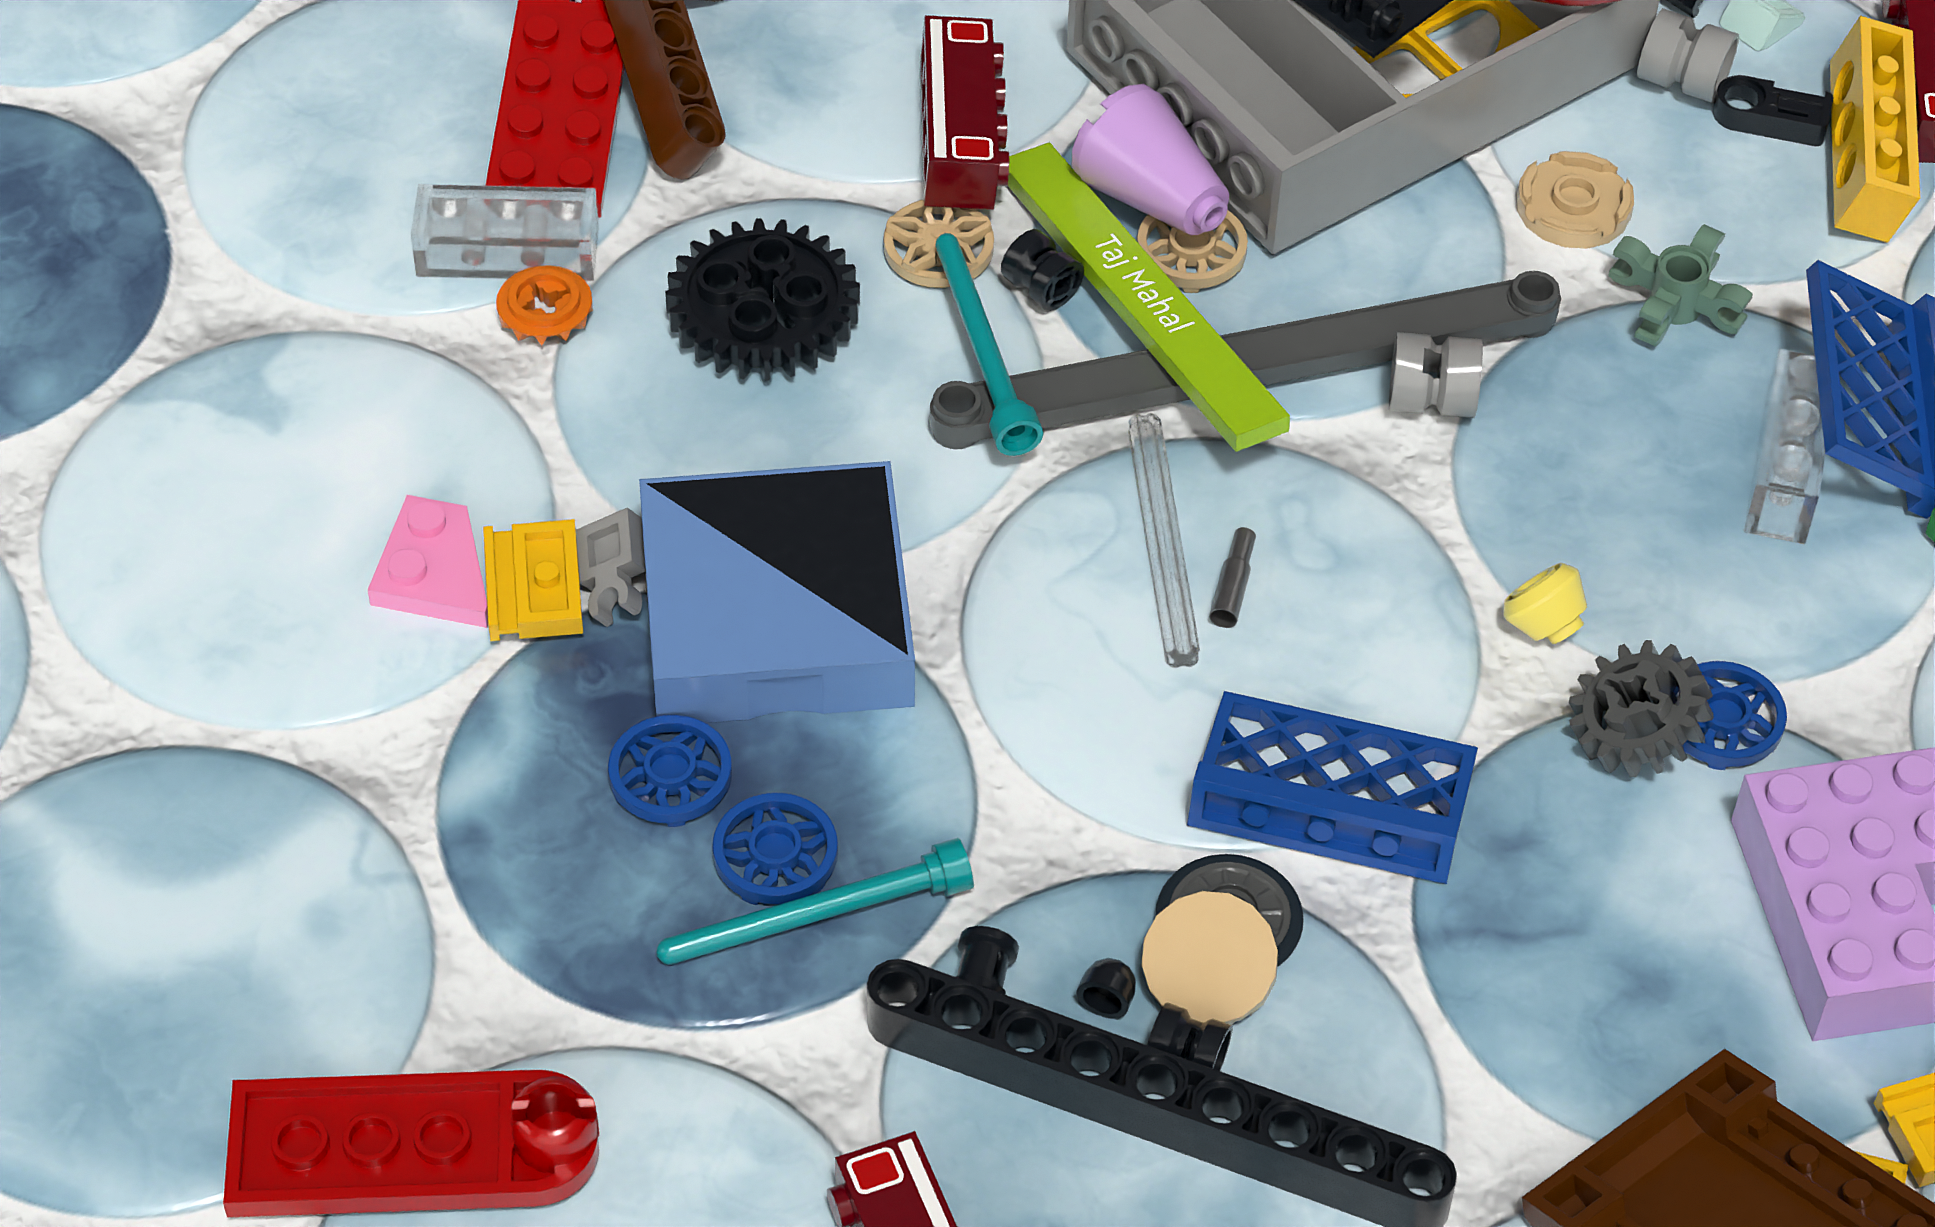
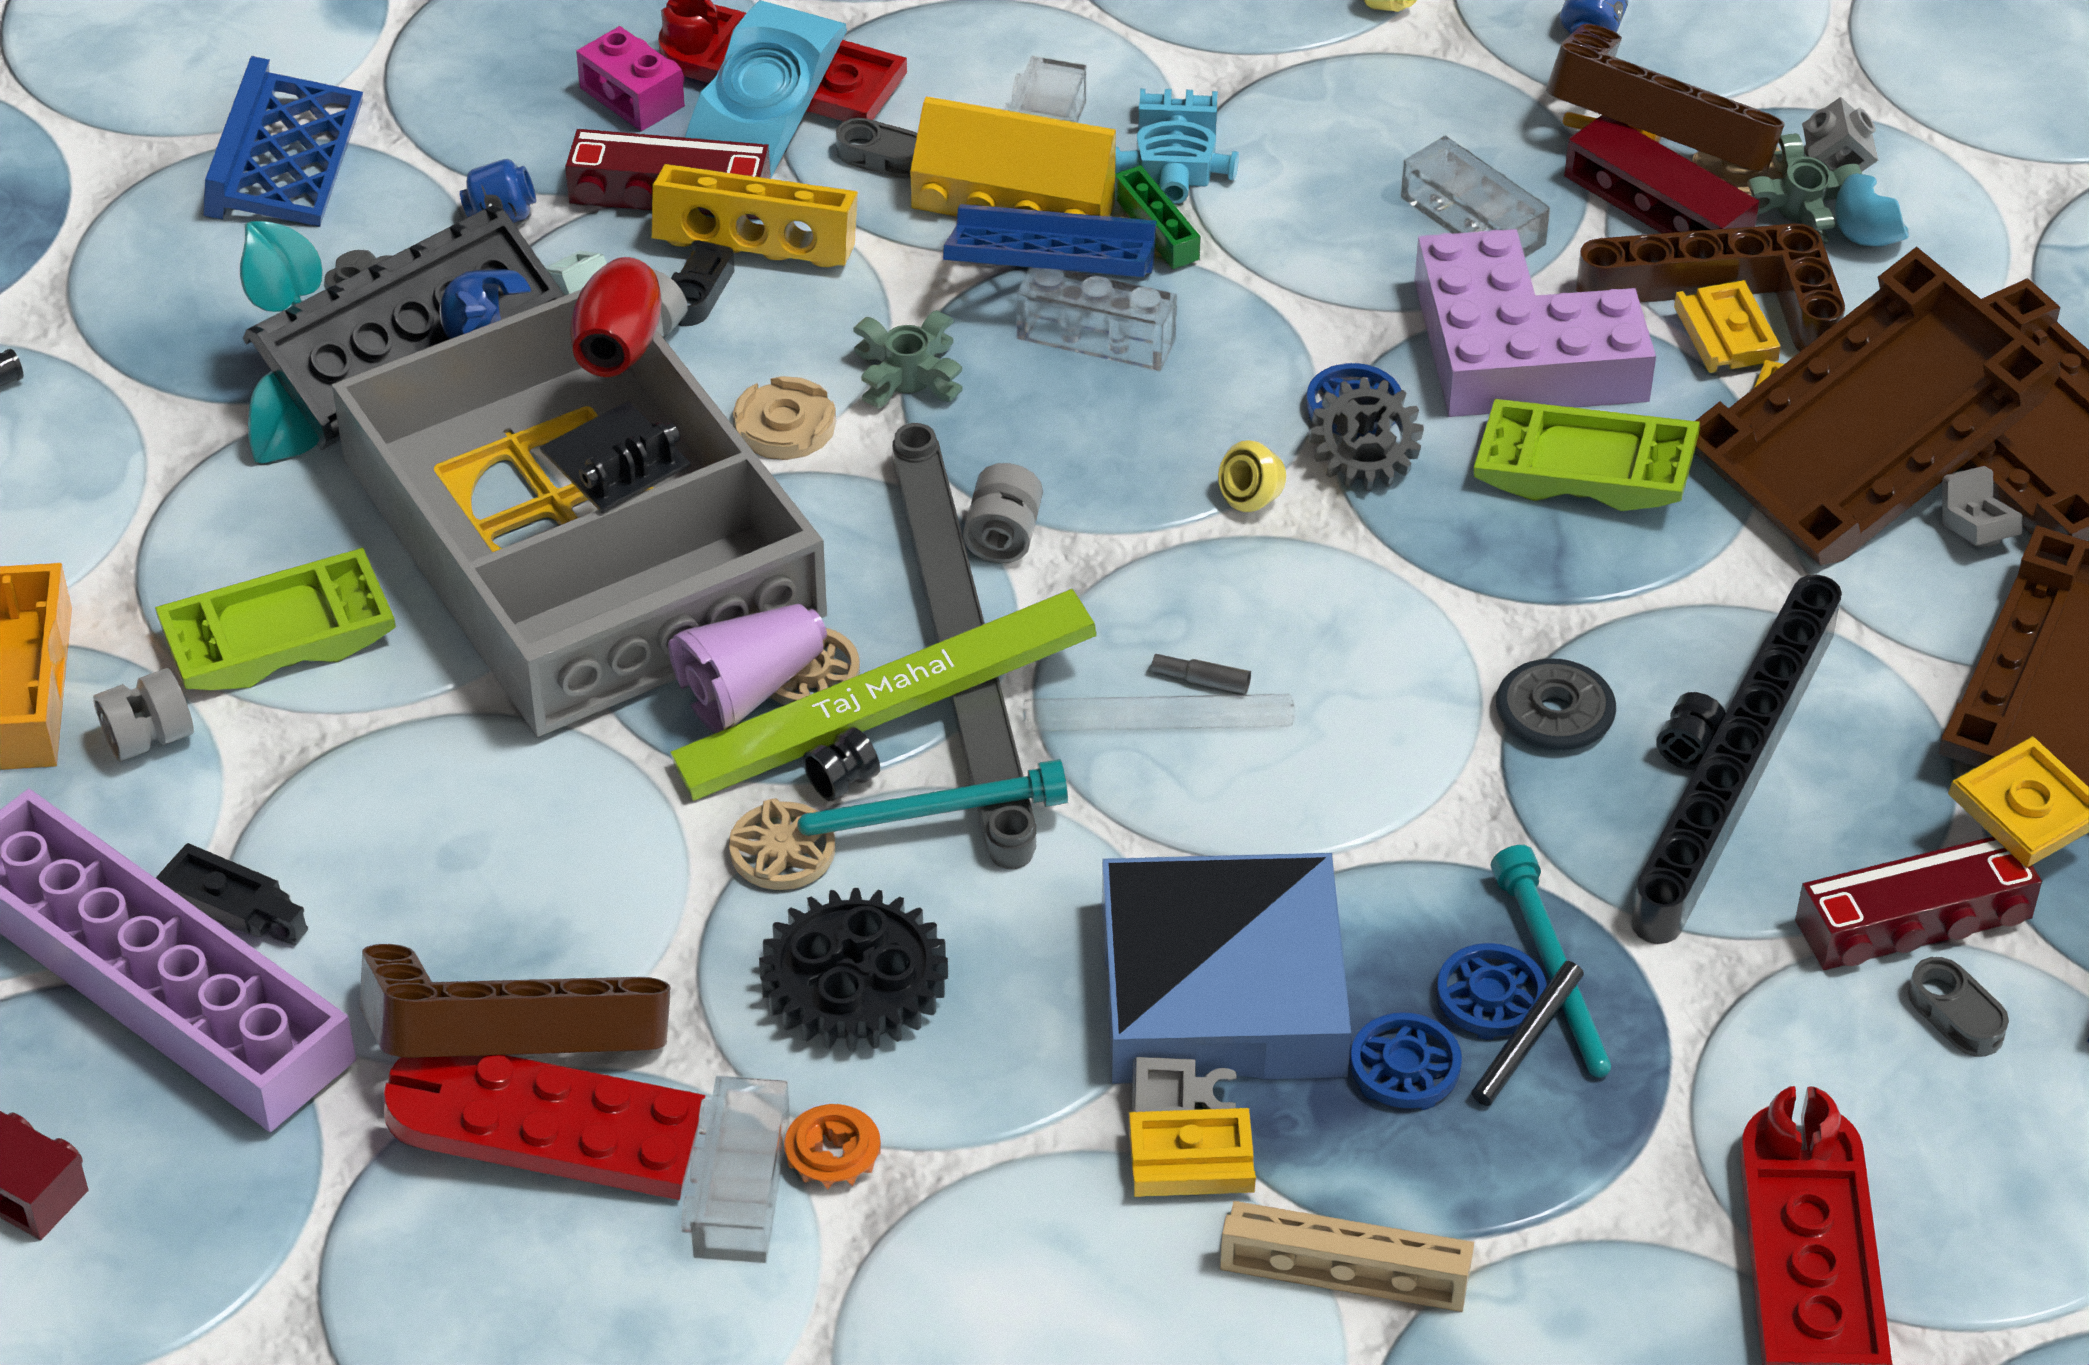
camera: 85 degrees left, 5 degrees down
(384, 703) = (1346, 1256): none -> tan fence
(431, 565) = (1157, 1237): bright pink wing -> none
(703, 873) = (1527, 1033): none -> black bar
(961, 113) = (636, 802): dark red brick -> none
(980, 956) = (1621, 851): black bush -> none
(1107, 988) = (1631, 777): black hinge -> none
(1210, 957) = (1611, 708): tan tile -> none
(1326, 817) = (1463, 632): blue fence -> none
(1663, 942) = (1586, 453): none -> lime slope

